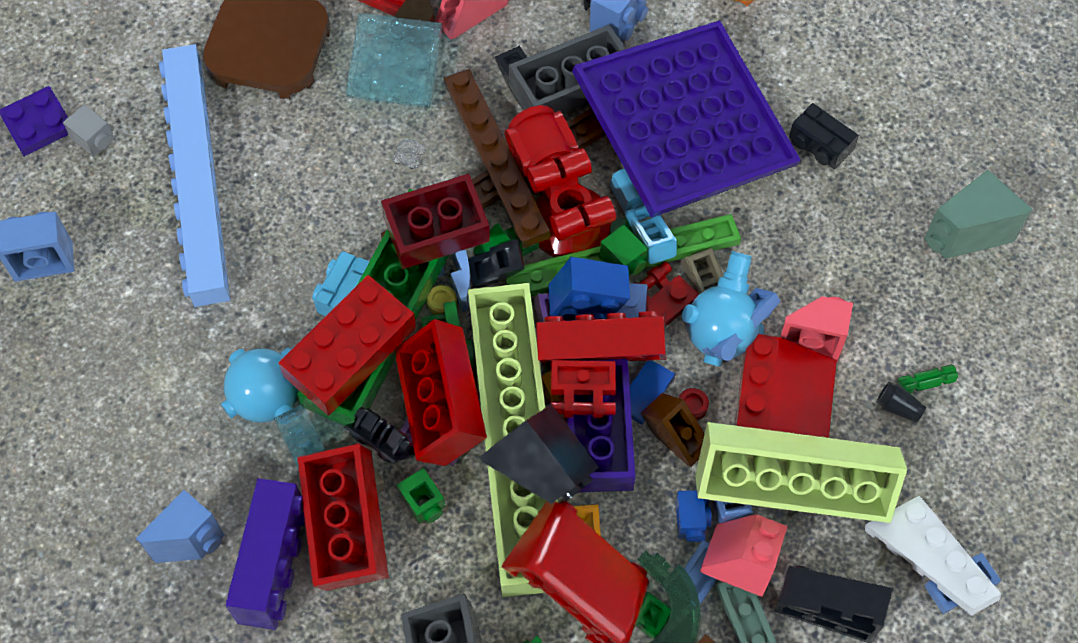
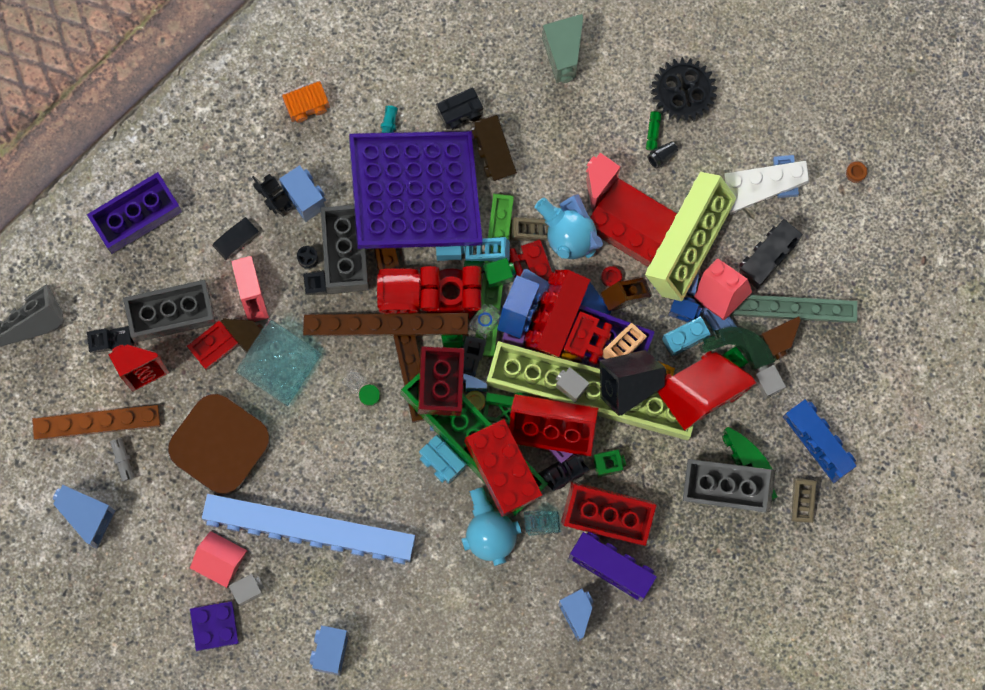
camera: 70 degrees left, 15 degrees up
(125, 92) = (218, 559): none -> coral slope
(397, 177) = (369, 395): none -> green tile
(505, 390) = (571, 384): none -> light grey brick
(542, 38) = (307, 253): none -> black wheel
(548, 259) = (485, 320): none -> clear brick
(600, 430) = (613, 351): none -> light nougat slope
(652, 530) = (686, 336): none -> medium azure brick
(773, 68) = (389, 120): none -> teal pin
(792, 187) = (492, 147): none -> dark brown wedge
(1028, 414) = (667, 94): none -> black gear

